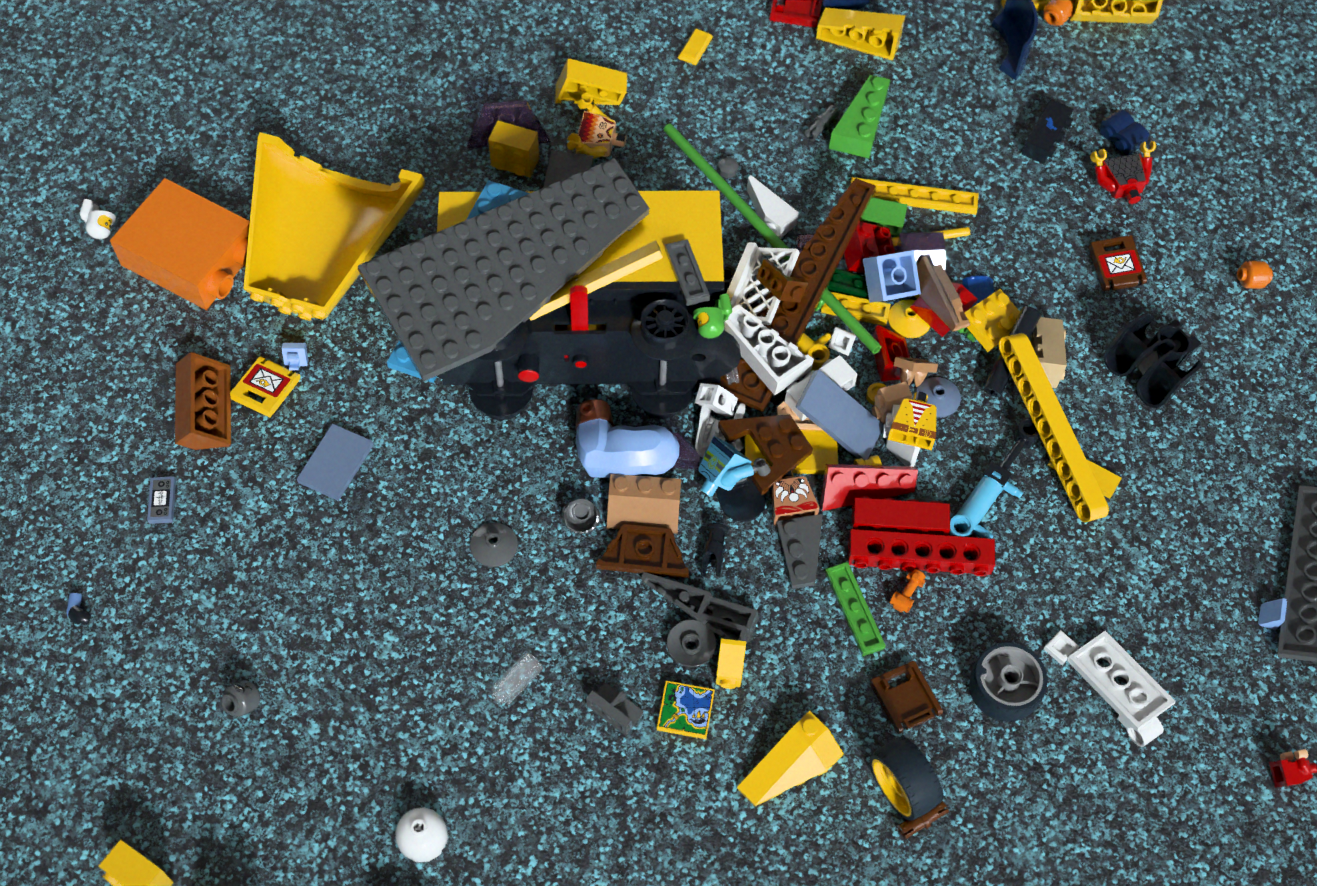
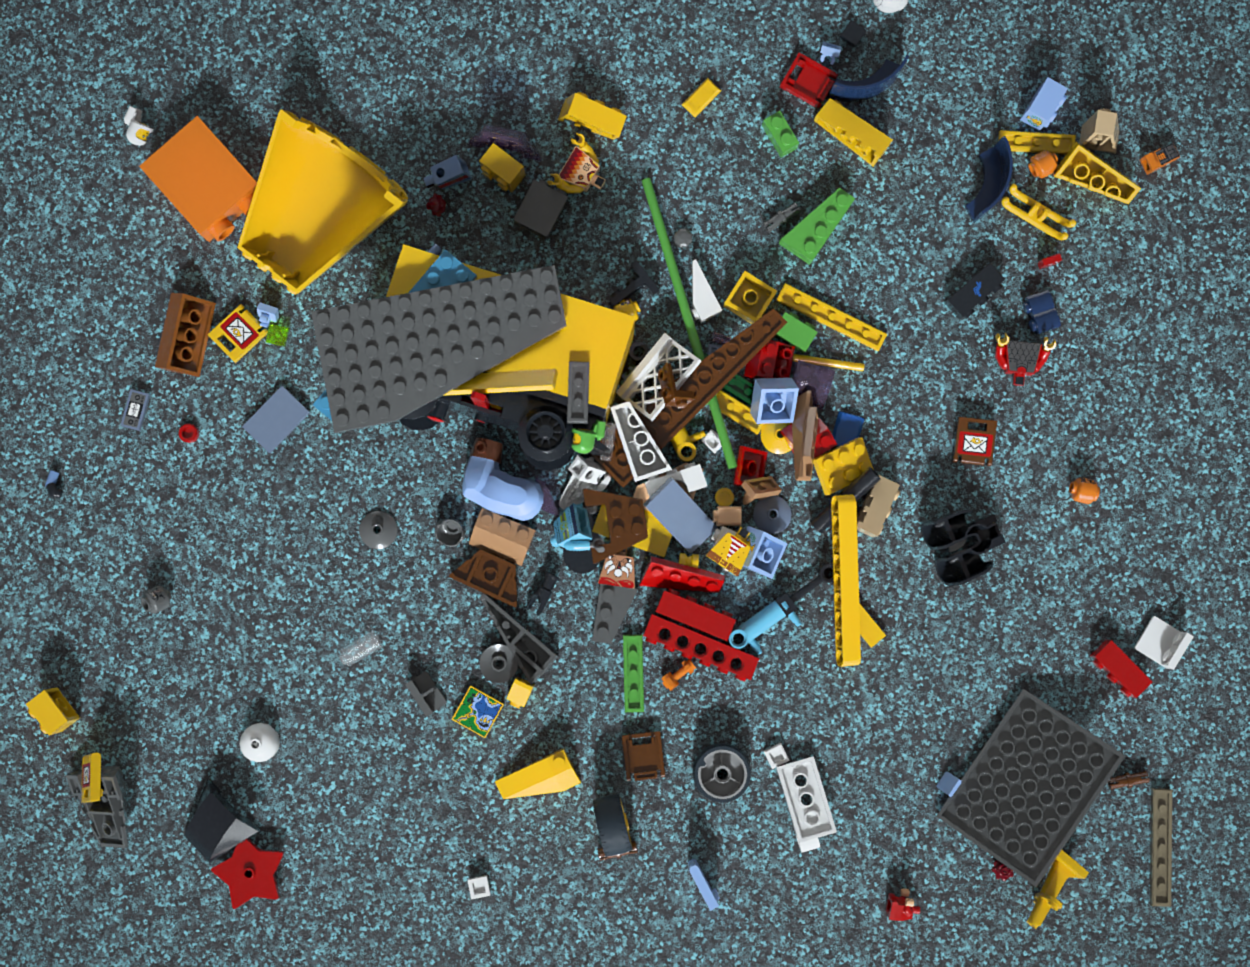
camera: 20 degrees right, 25 degrees up
(233, 506) = (188, 433): none -> red tile
(312, 376) = (277, 335): none -> clear neon green tile
(457, 170) = (448, 173): none -> medium blue torso
(789, 52) = (780, 134): none -> bright green brick
(820, 193) = (749, 298): none -> yellow brick
(951, 428) = (764, 552): none -> light blue brick
(1045, 818) = (710, 895): none -> light blue container
(1074, 54) = (1037, 214): none -> yellow piece
(1107, 87) = (1049, 261): none -> red tile

